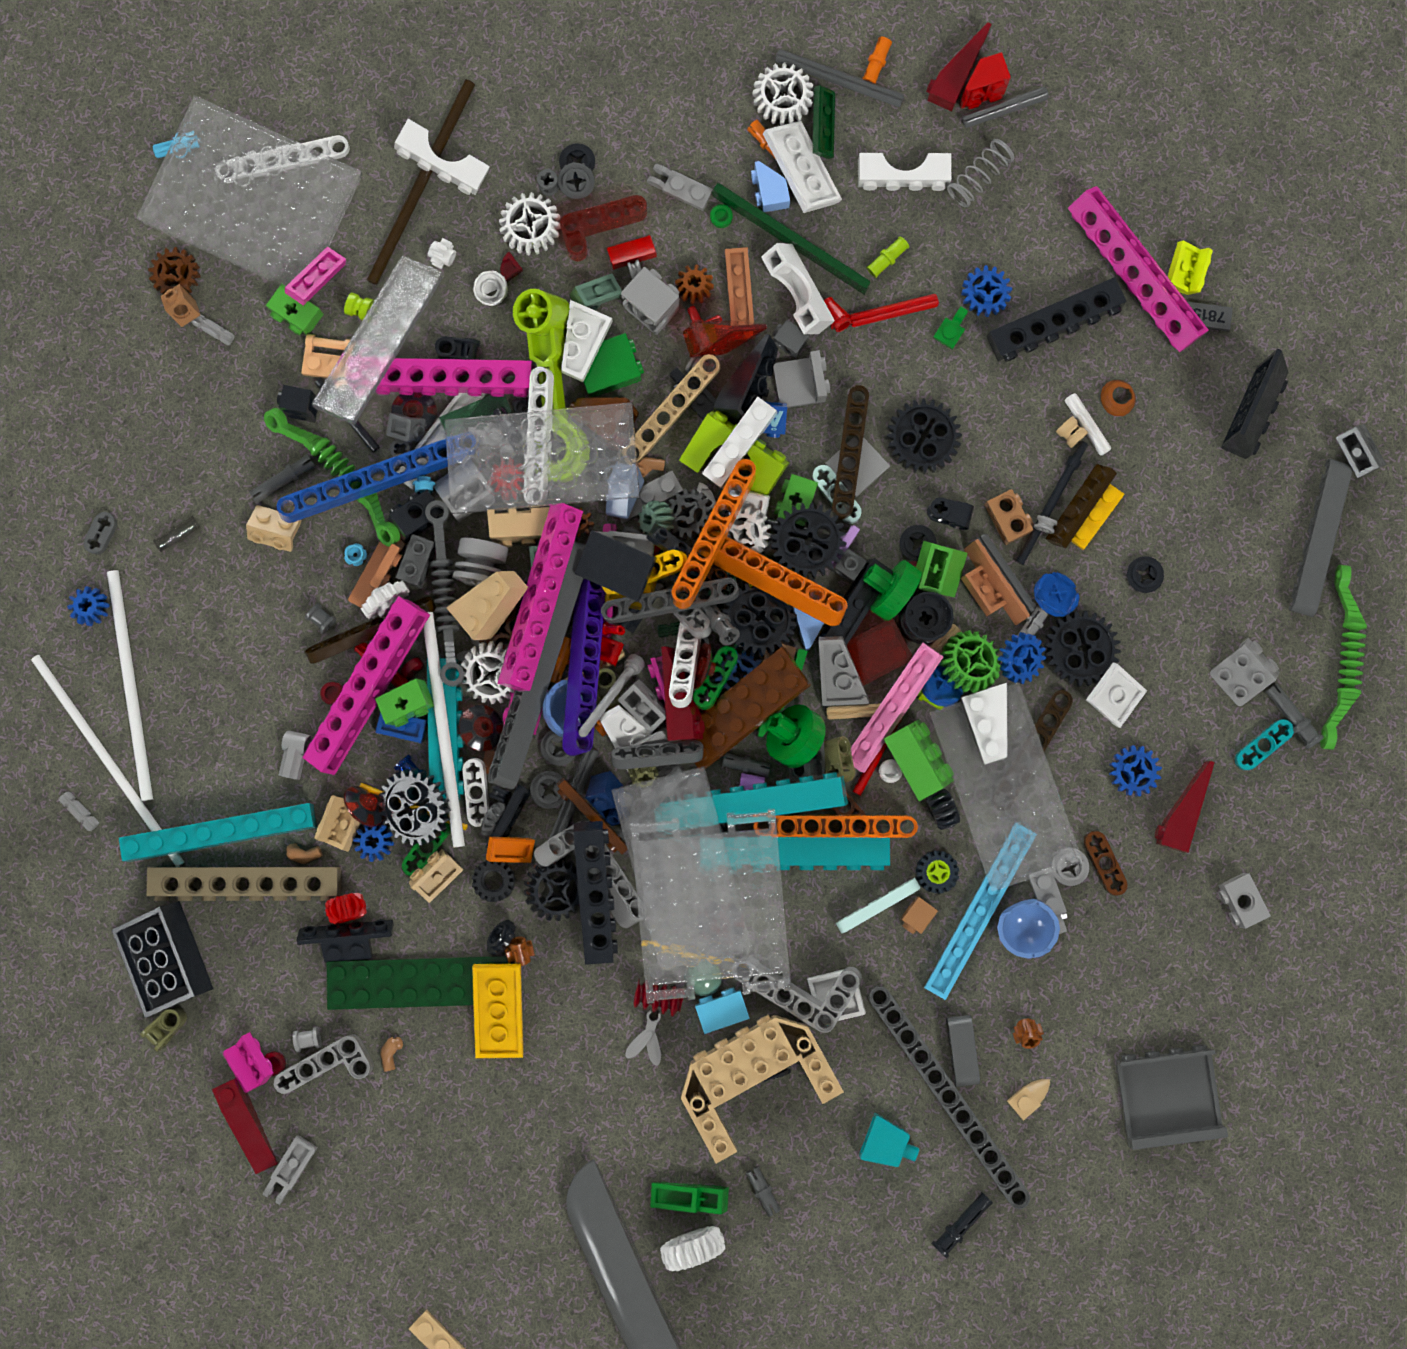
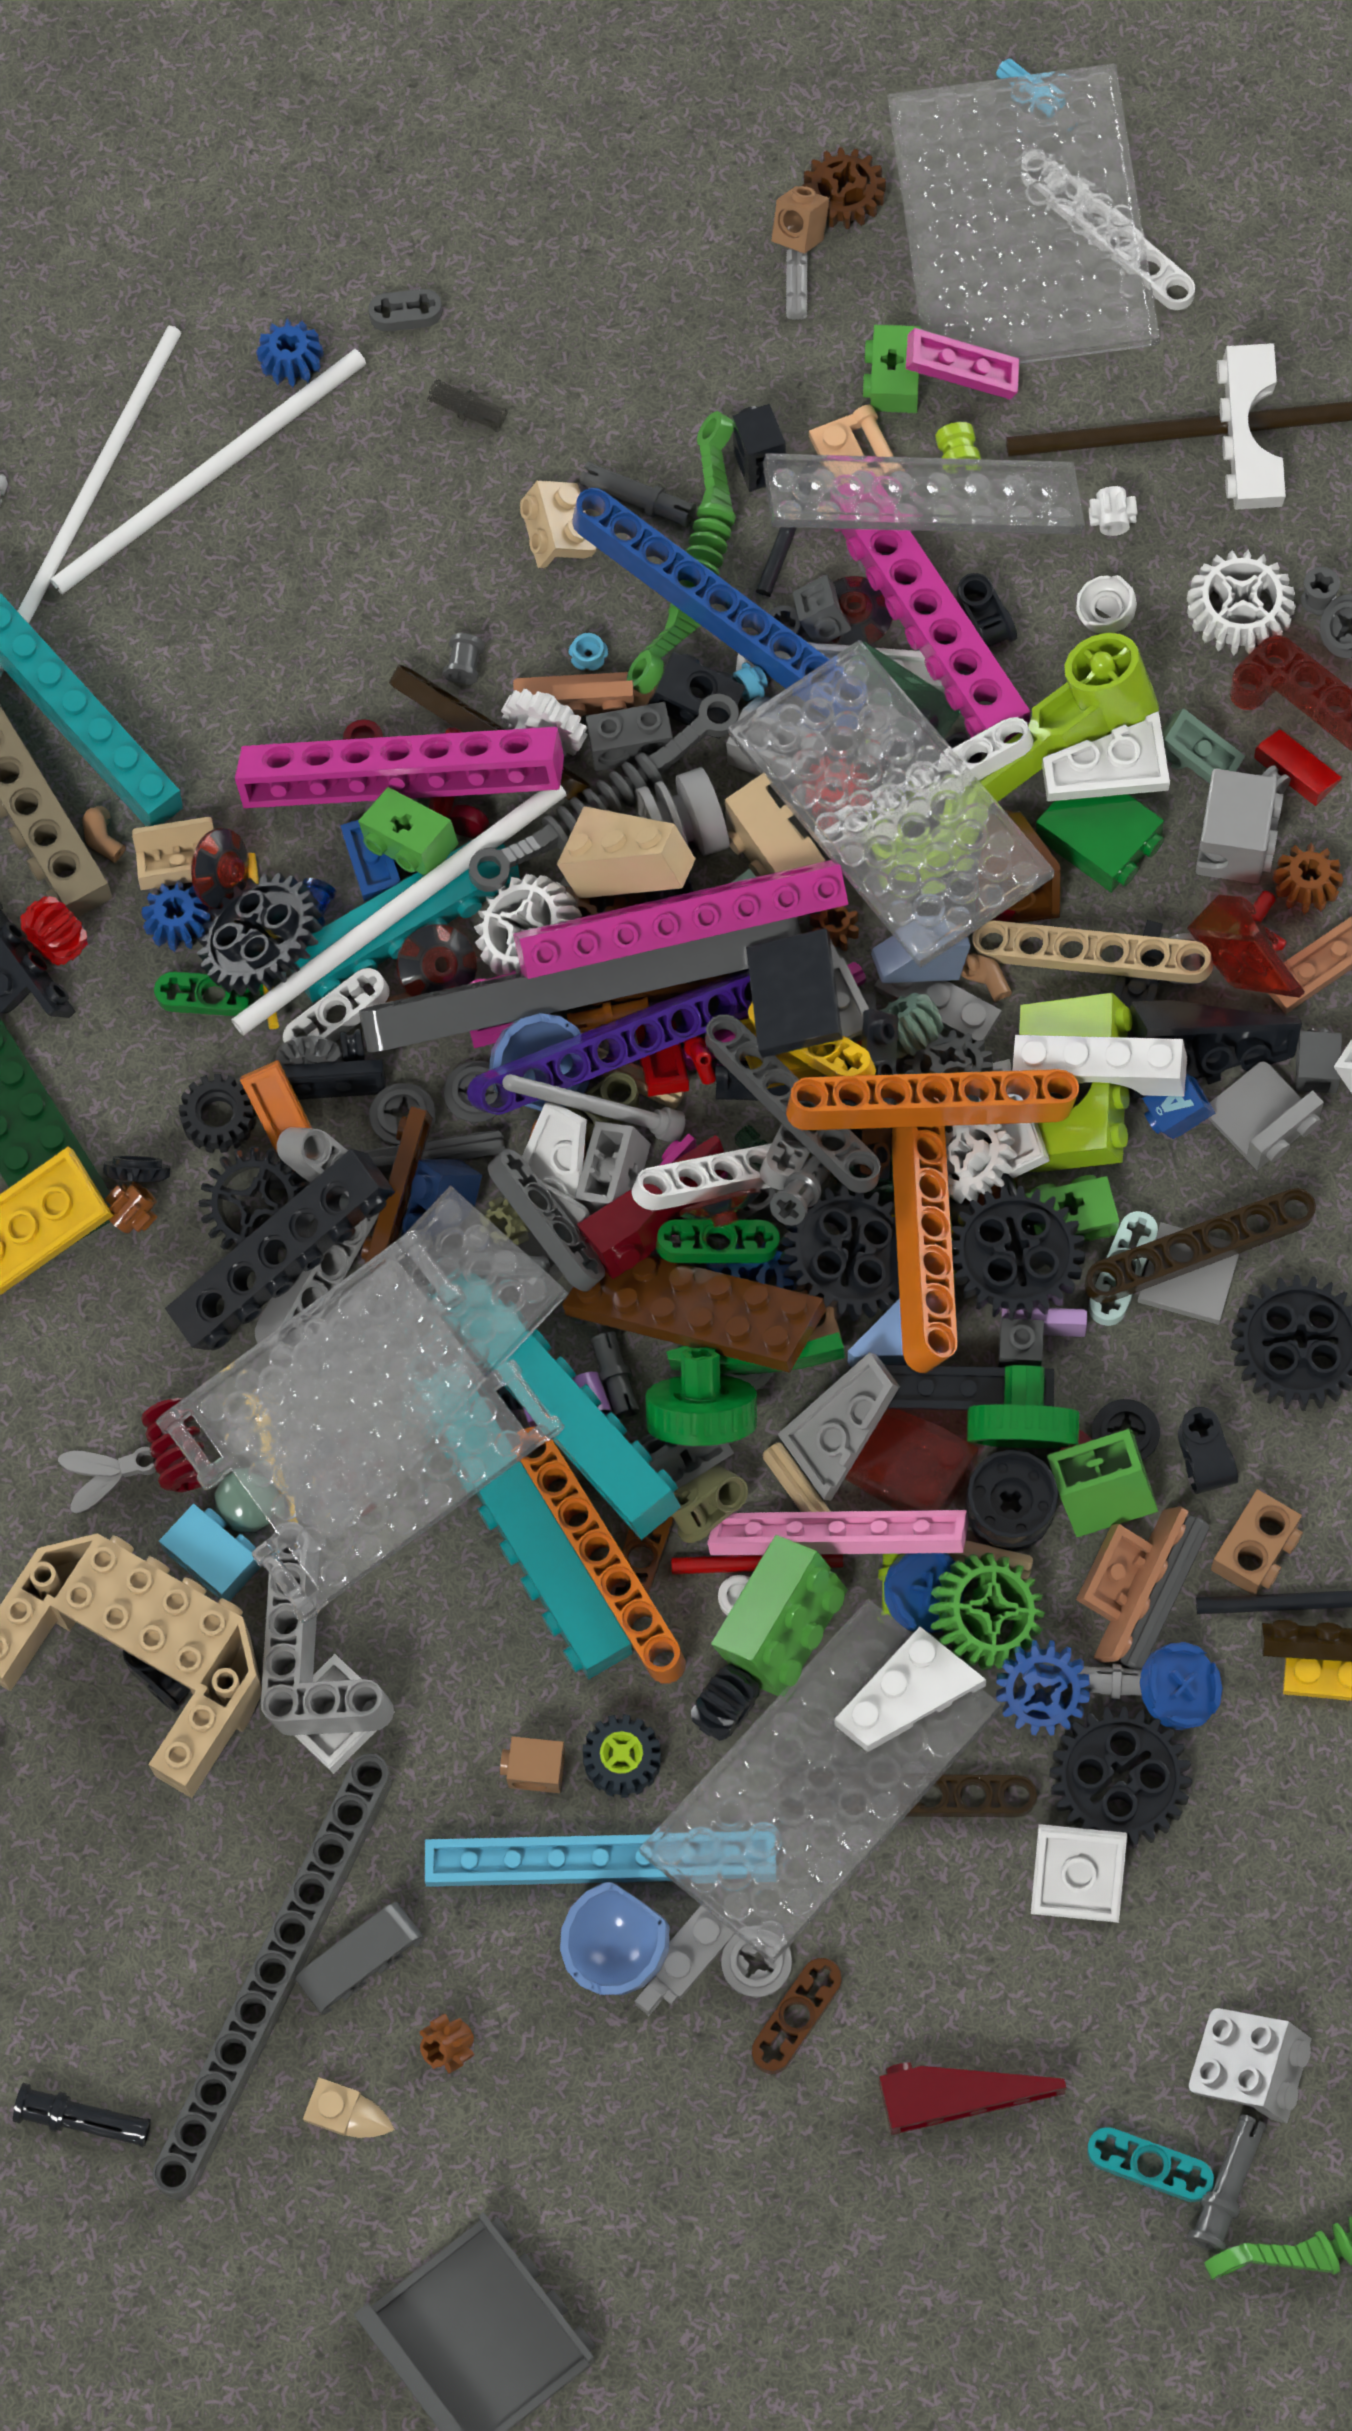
camera: 65 degrees right, 15 degrees down
(294, 747) = (254, 727): light grey piece -> none
(435, 875) = (176, 1028): tan bracket -> none
(509, 267) = (1157, 615): dark red tile -> none
(878, 905) = (514, 1695): light aqua beam -> none
(887, 1143) = (145, 1921): teal torso -> none
(1045, 524) = (1280, 1601): light grey bush -> none
(1132, 781) = (995, 1969): blue gear -> none
(1155, 572) = (1320, 1797): black gear -> none
(1255, 908) = (866, 2300): light grey brick -> none

